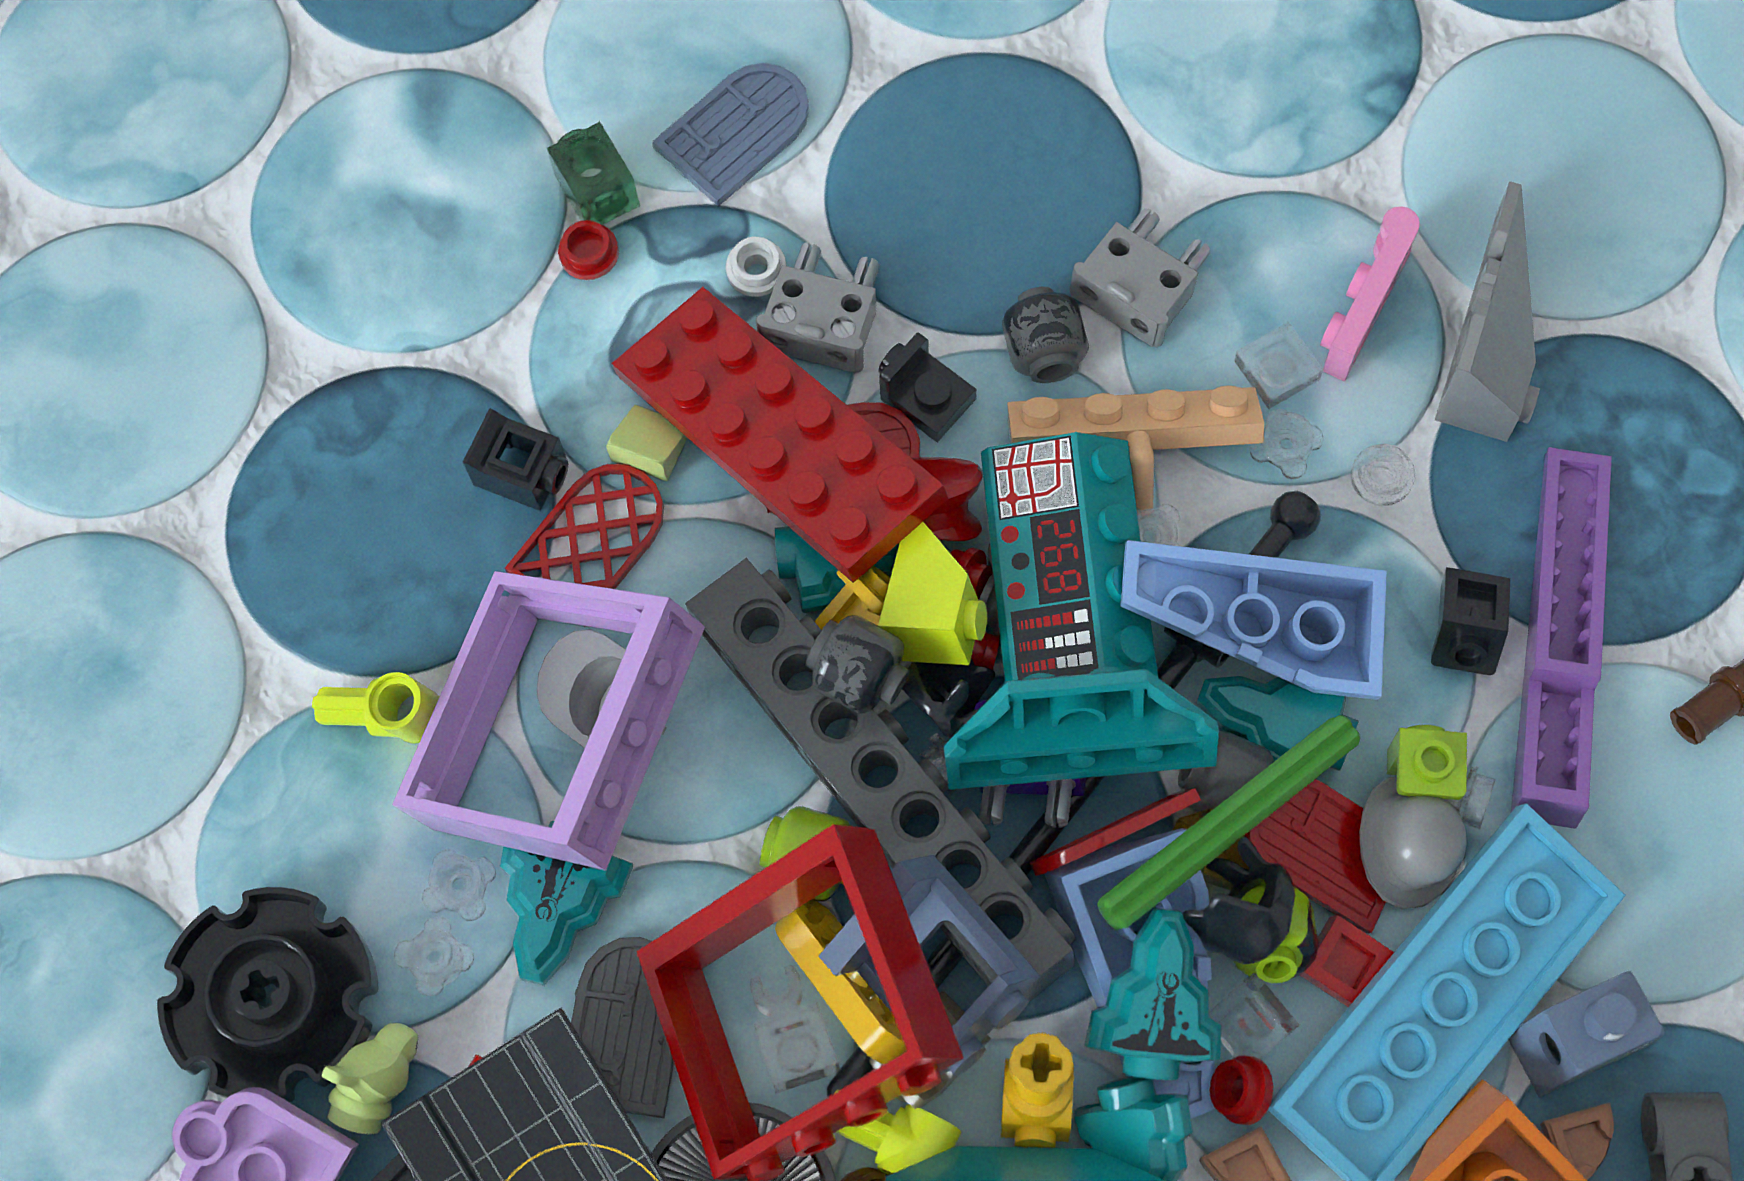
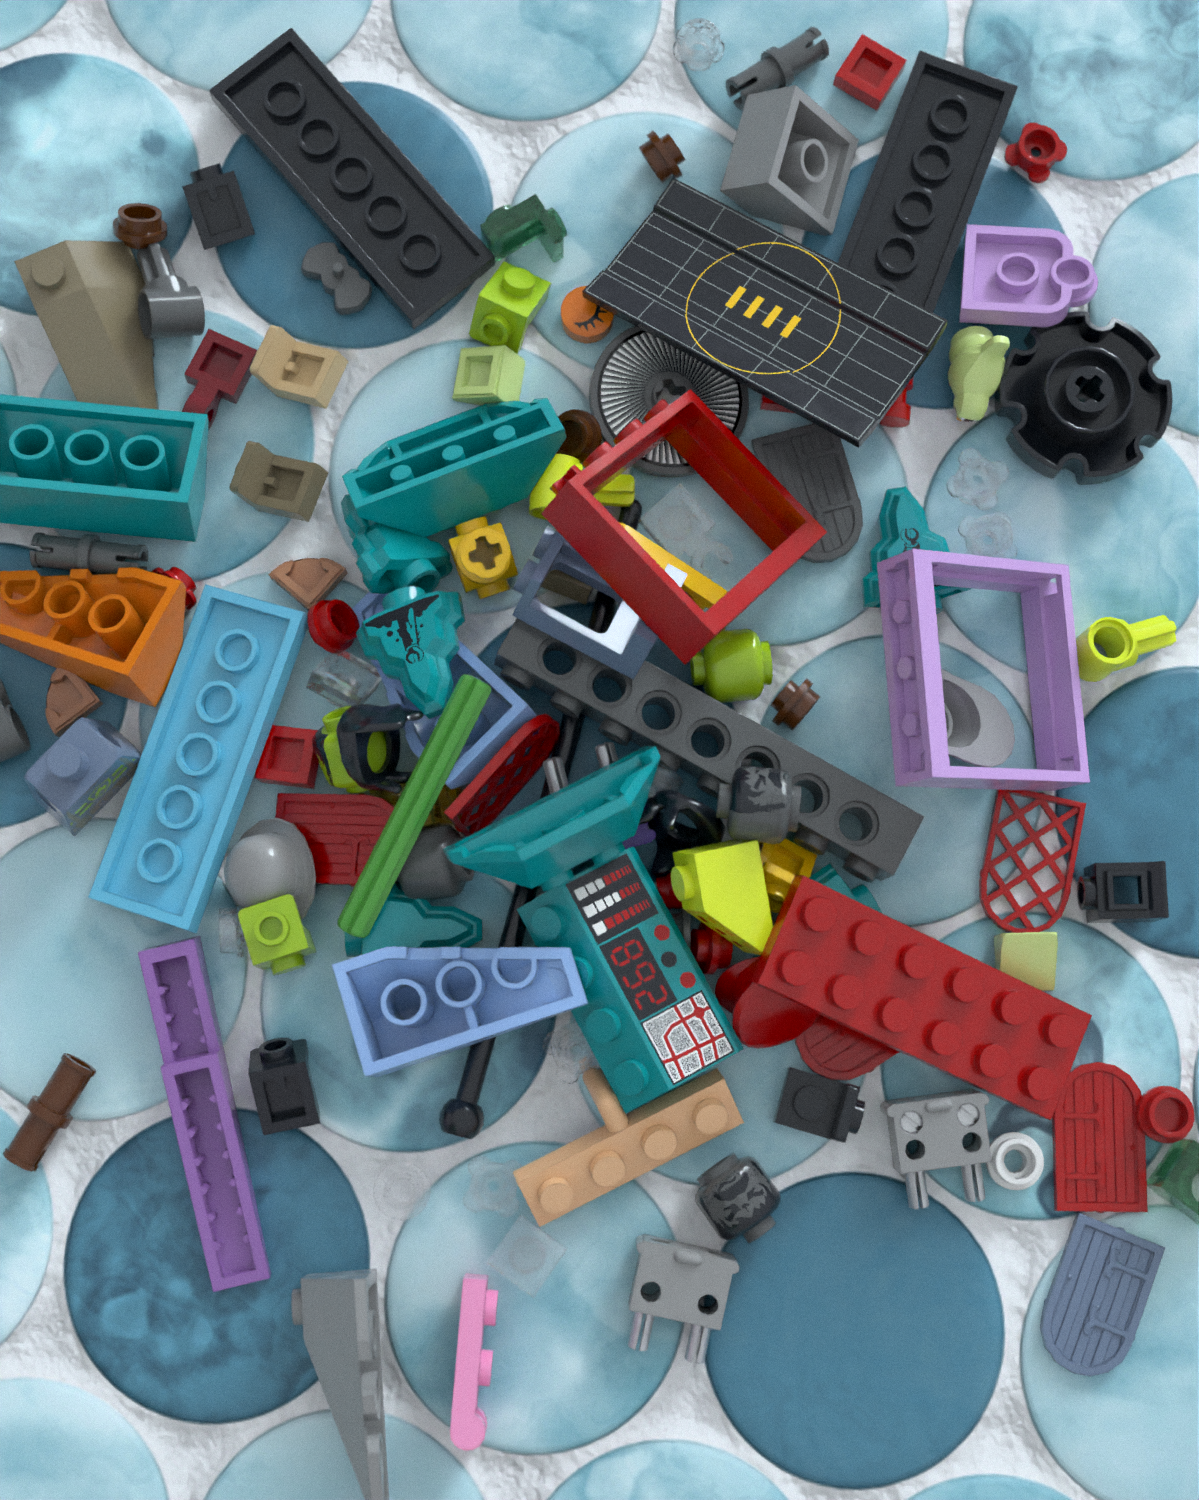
camera: 145 degrees right, 10 degrees up
(664, 254) = (1099, 1143): none -> red window
(760, 788) = (794, 703): none -> reddish brown plate

